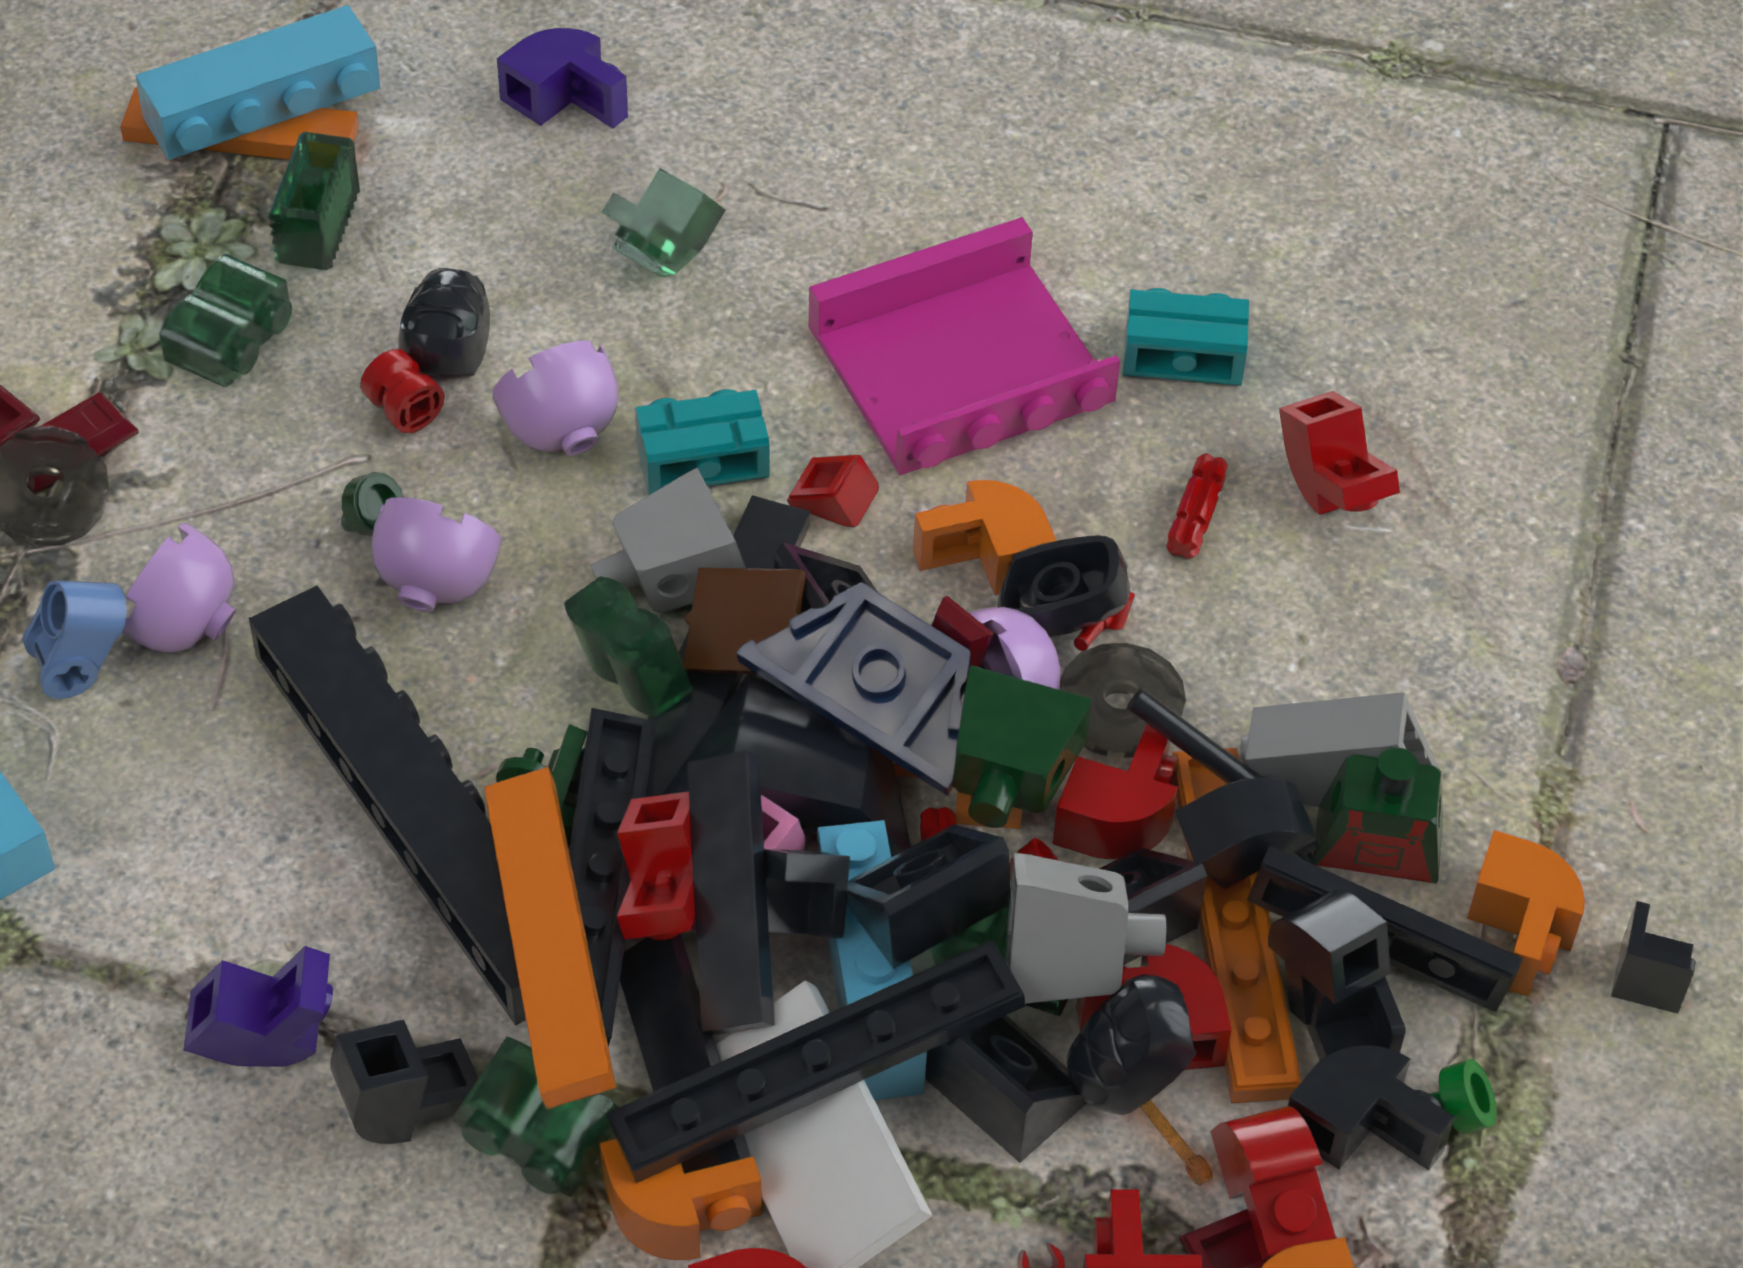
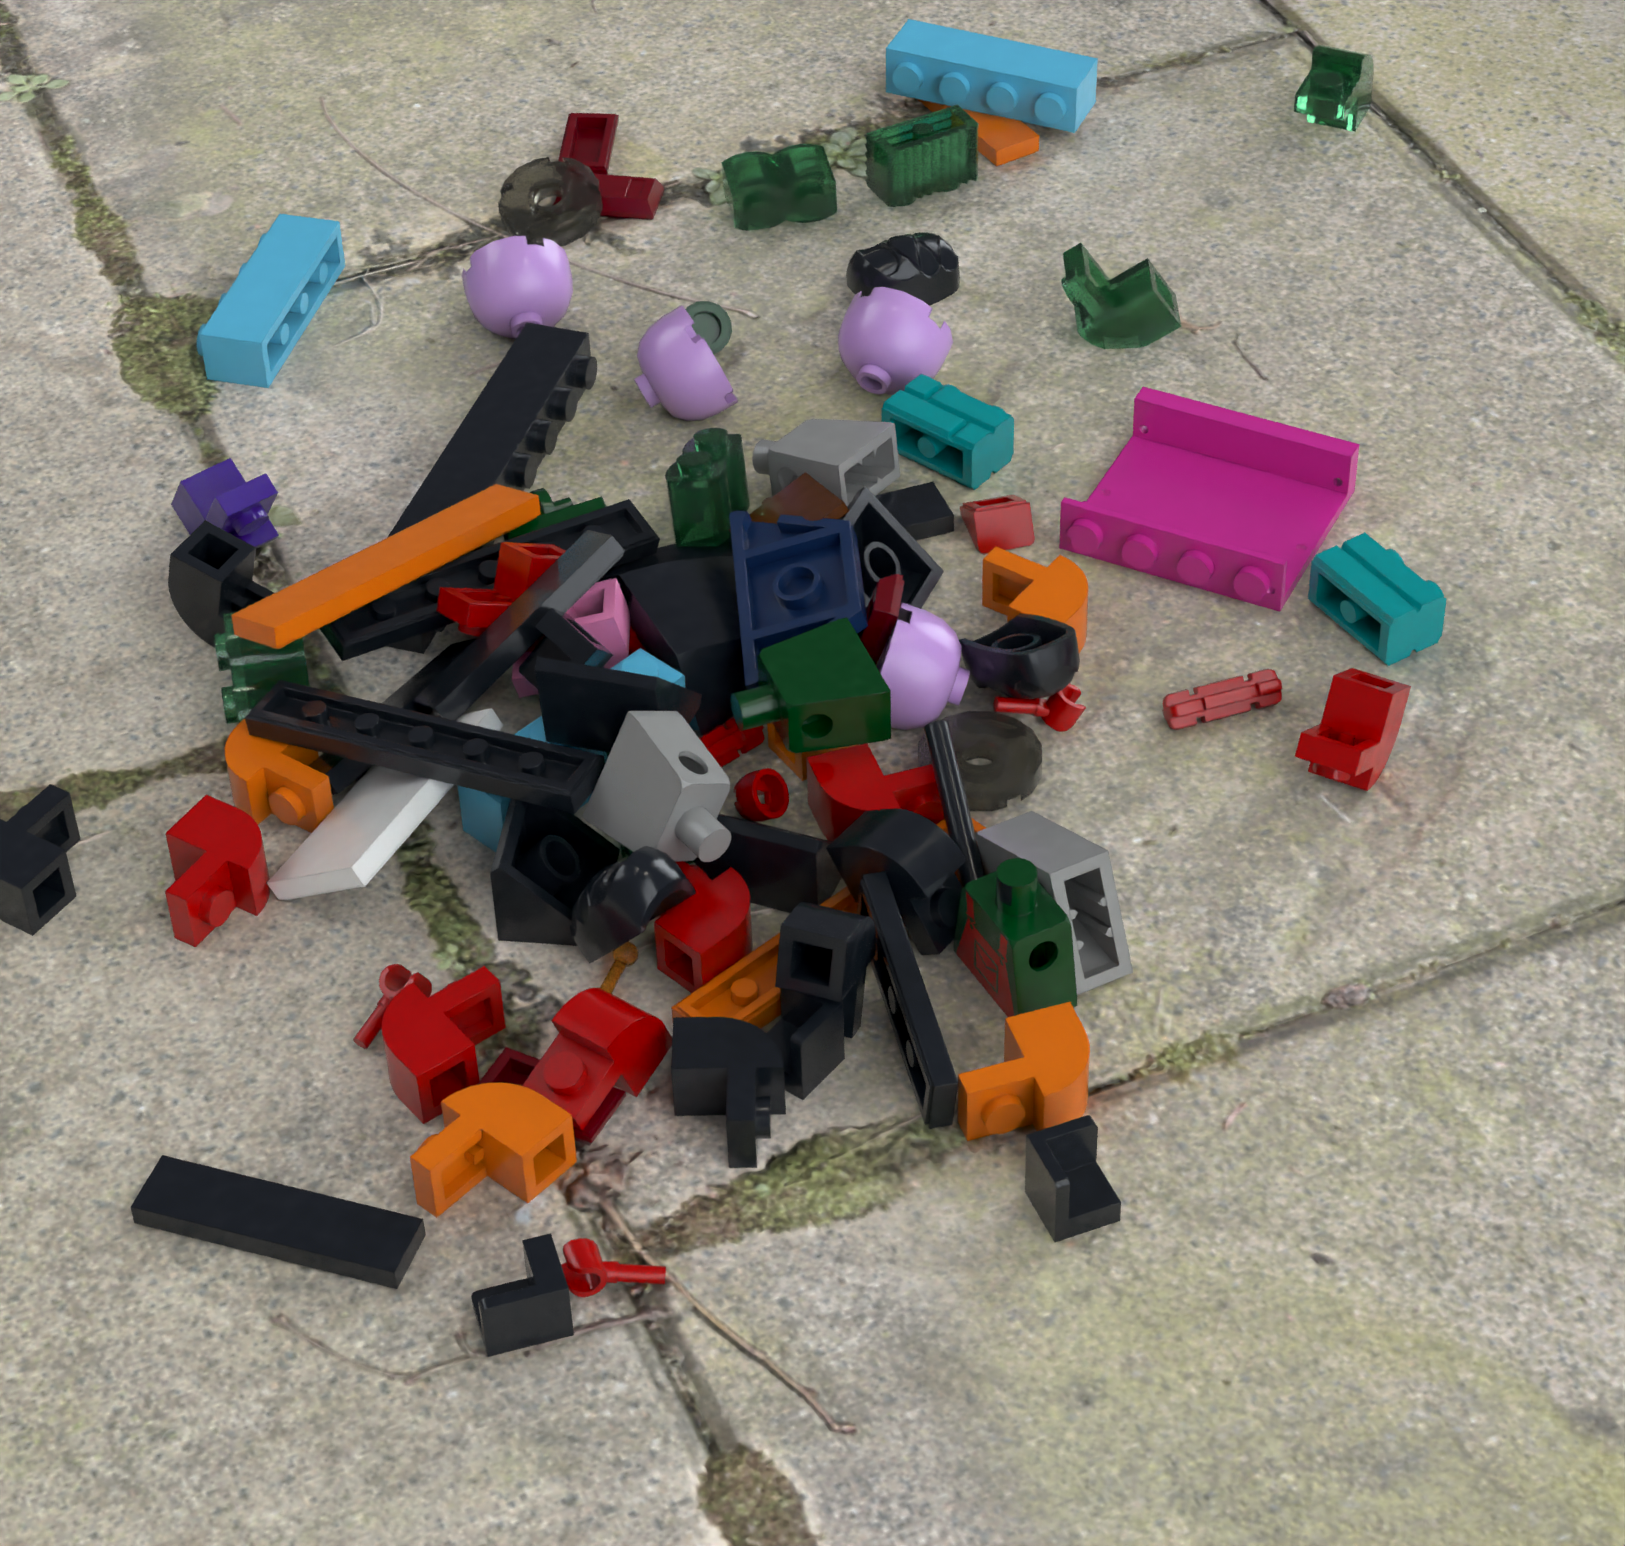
camera: 55 degrees right, 10 degrees down
(74, 634) = (430, 268): medium blue piece -> none
(409, 397) = (816, 286): red wheel -> none
(559, 69) = (1197, 187): dark purple brick -> none
(1467, 1096) = (803, 1136): green tile -> none

